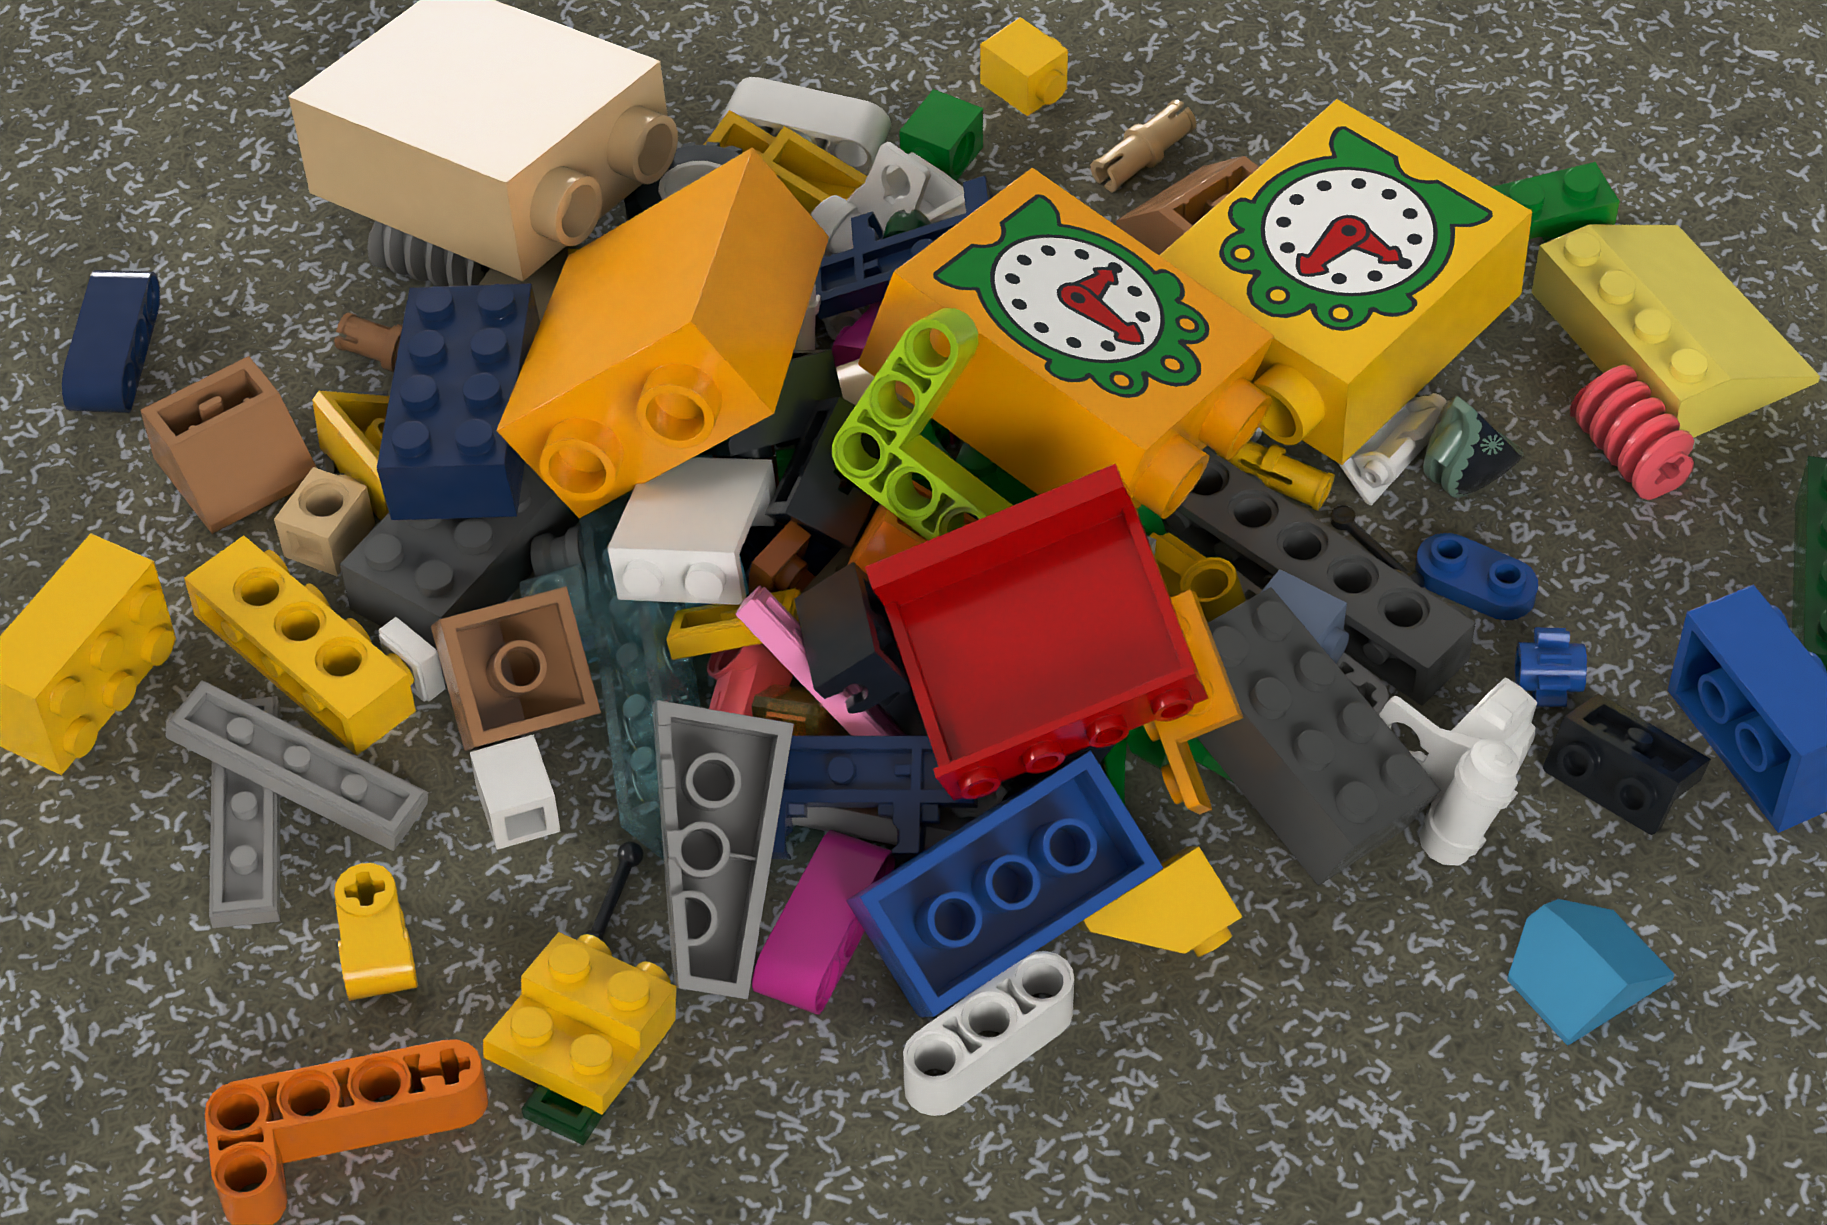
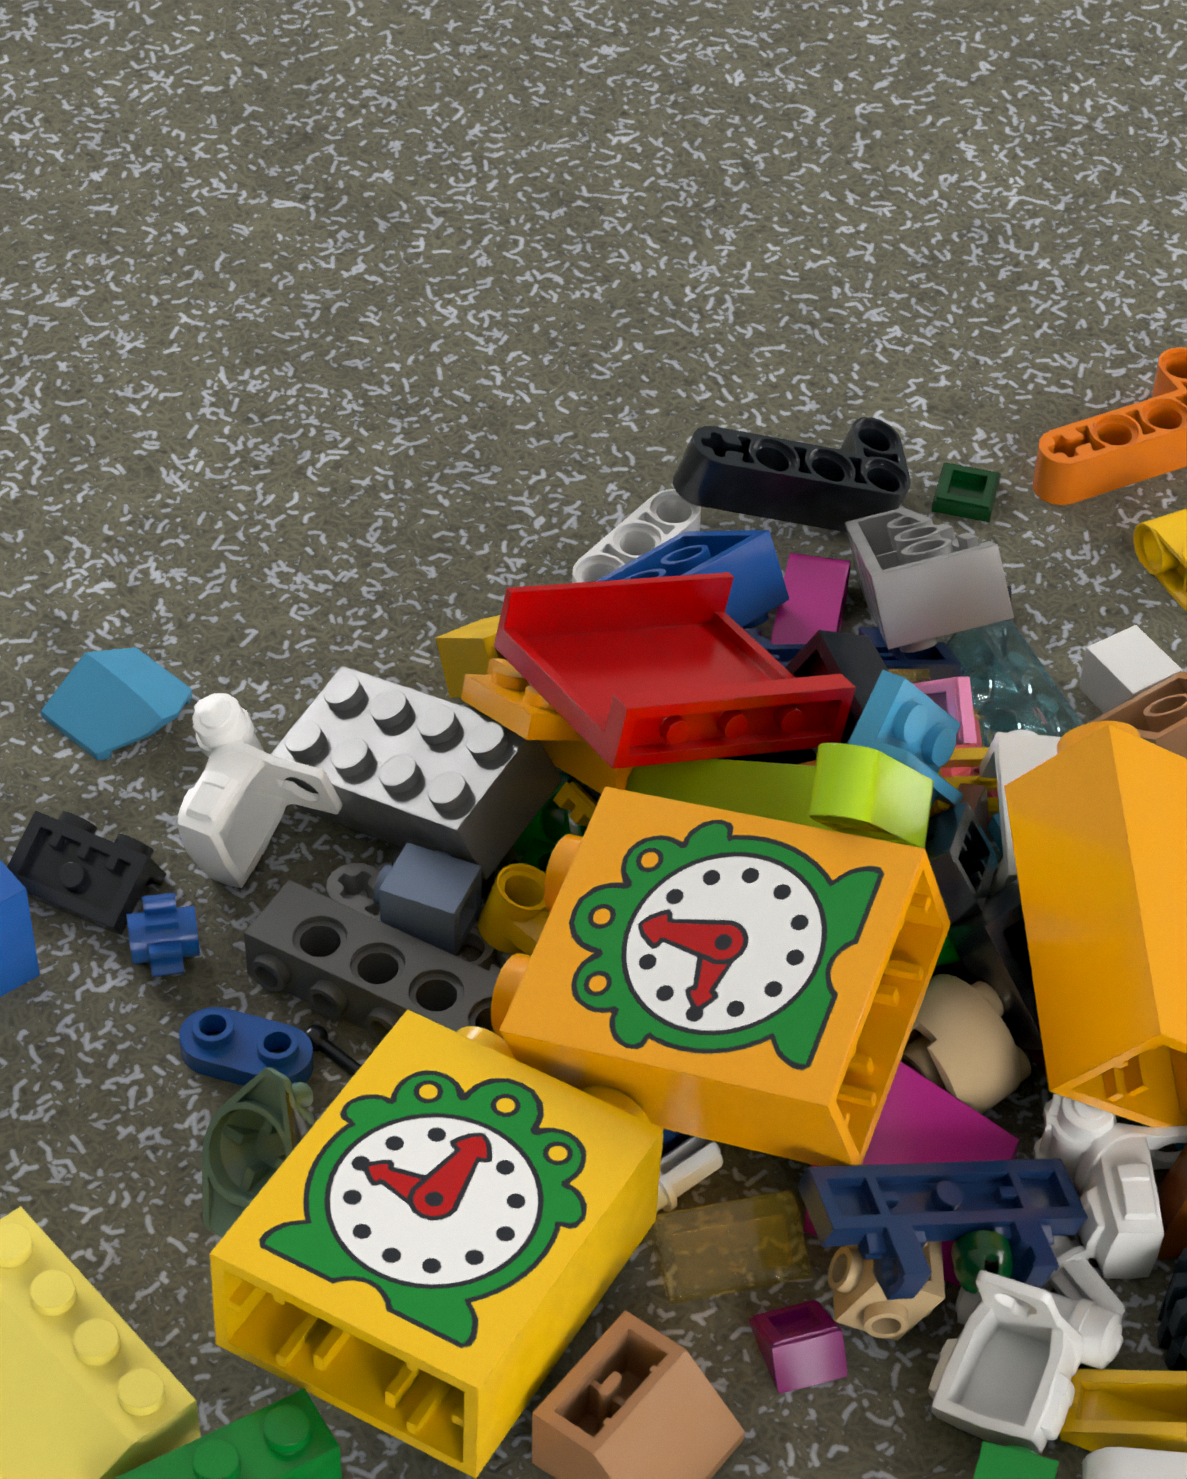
camera: 165 degrees right, 5 degrees down
(583, 1021) = (993, 509): yellow plate -> none
(769, 1065) = (795, 478): none -> black beam
(828, 533) = (910, 730): none -> dark azure bracket
(1634, 432) = (79, 1215): coral piece -> none

